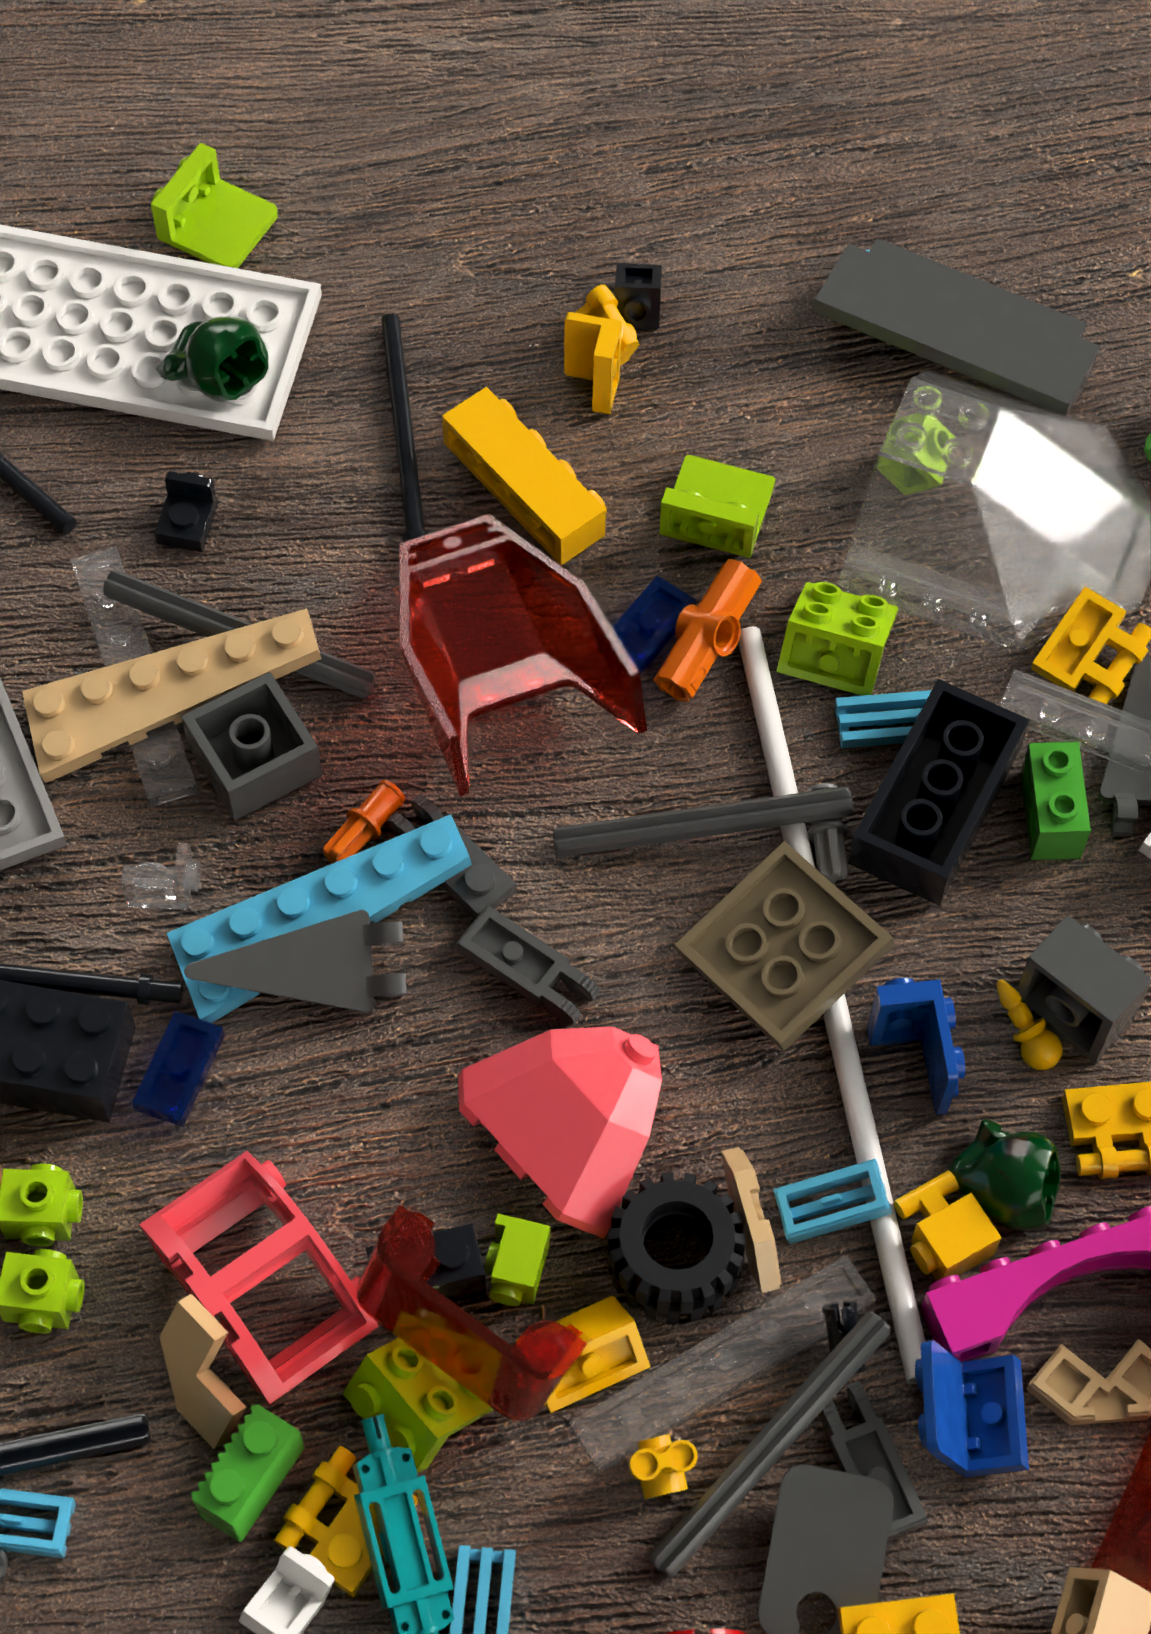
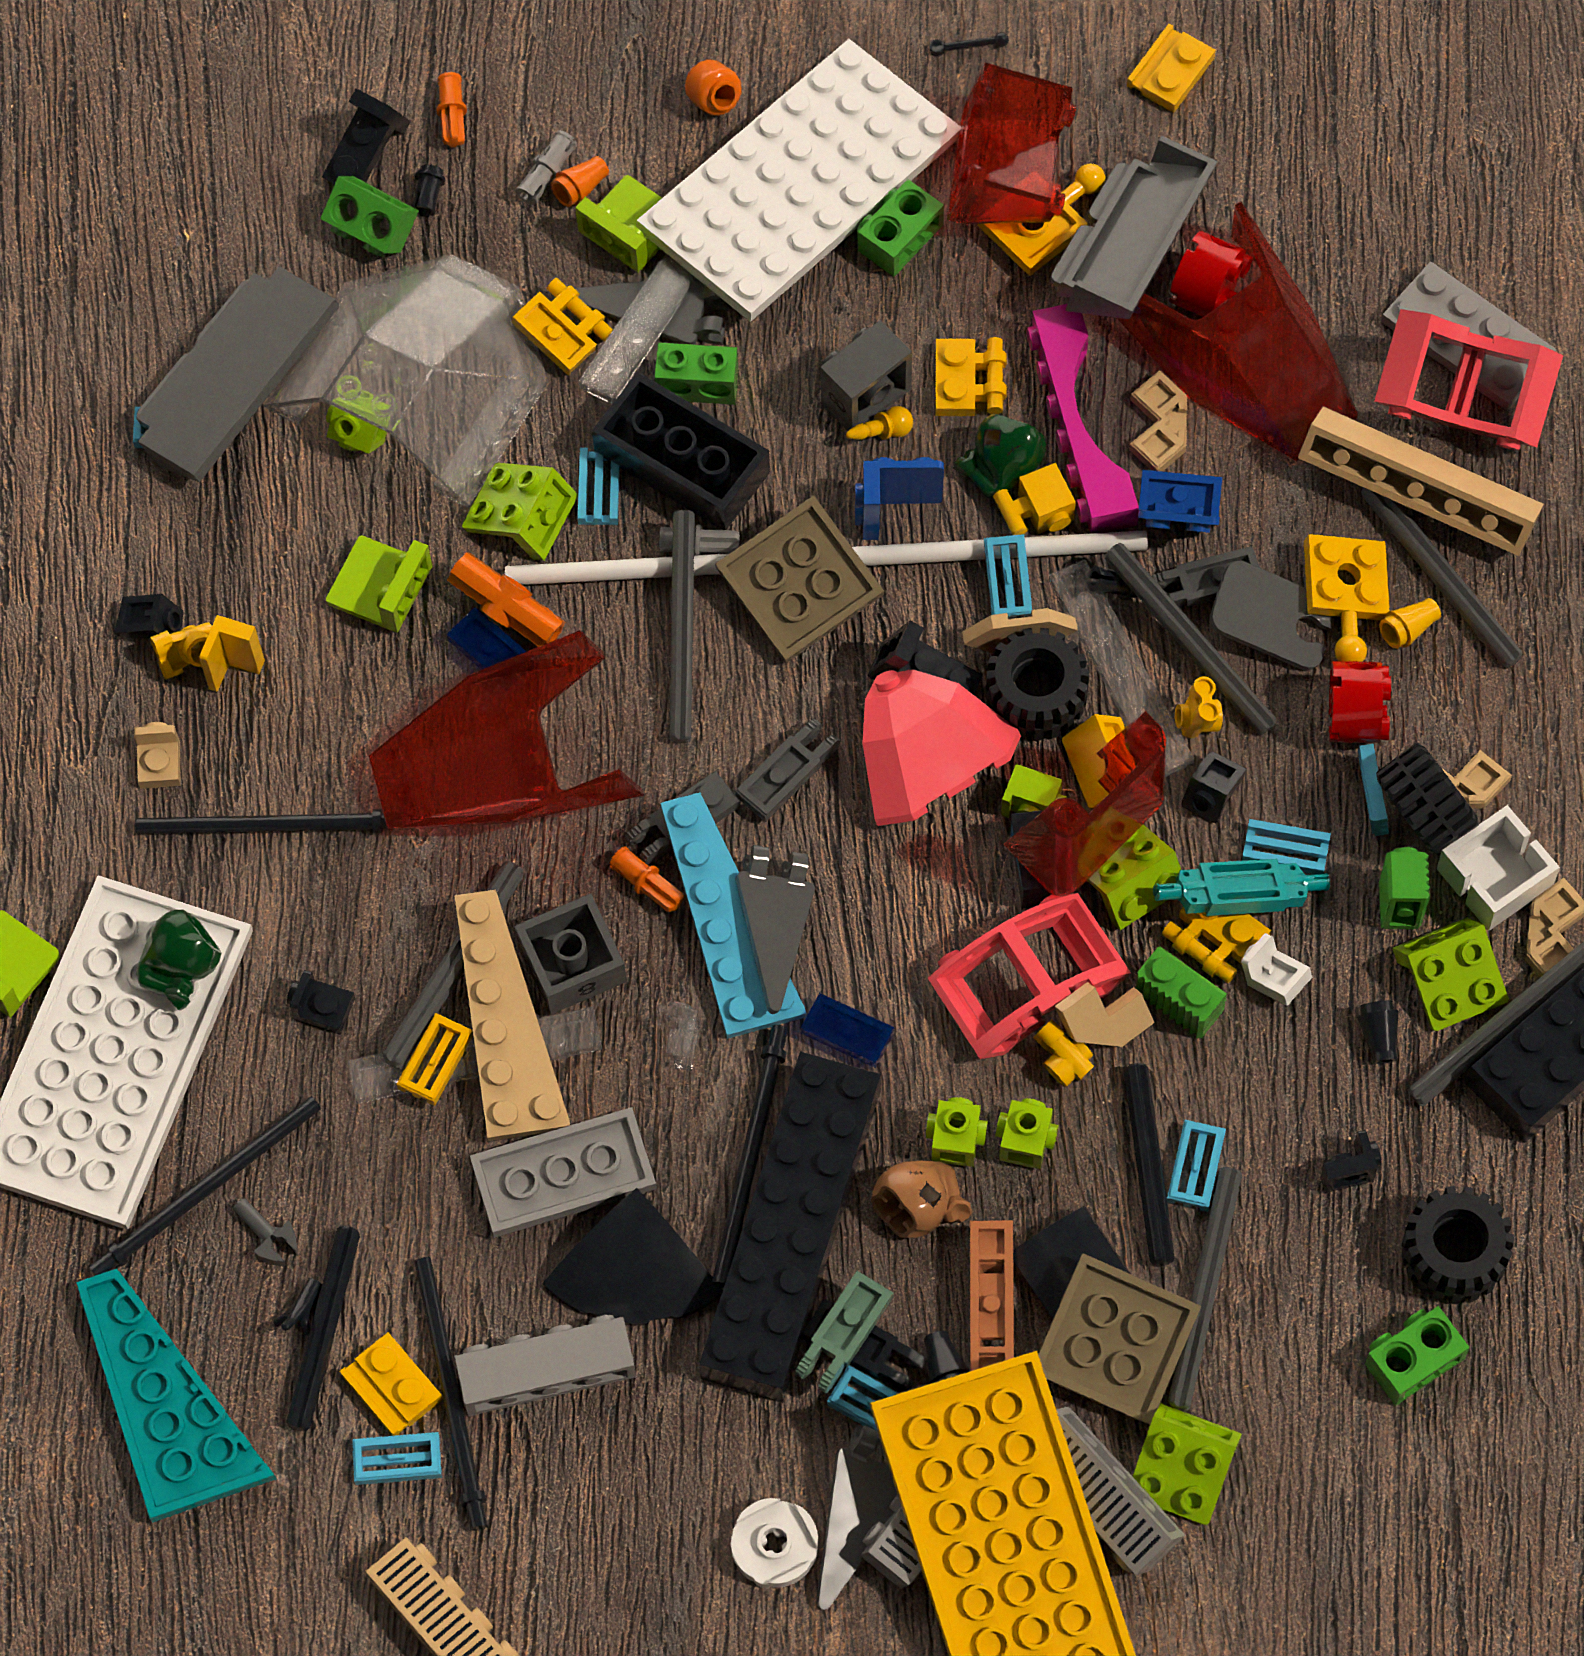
camera: 80 degrees left, 5 degrees up
(113, 634) = (419, 1090): none -> yellow tile
(140, 1332) = (1068, 1057): none -> yellow plate
(474, 326) = (158, 755): none -> tan bracket
(524, 475) = (332, 724): yellow brick -> none
(561, 1496) = (1212, 786): none -> black bracket
(680, 1112) = (906, 652): none -> black bracket

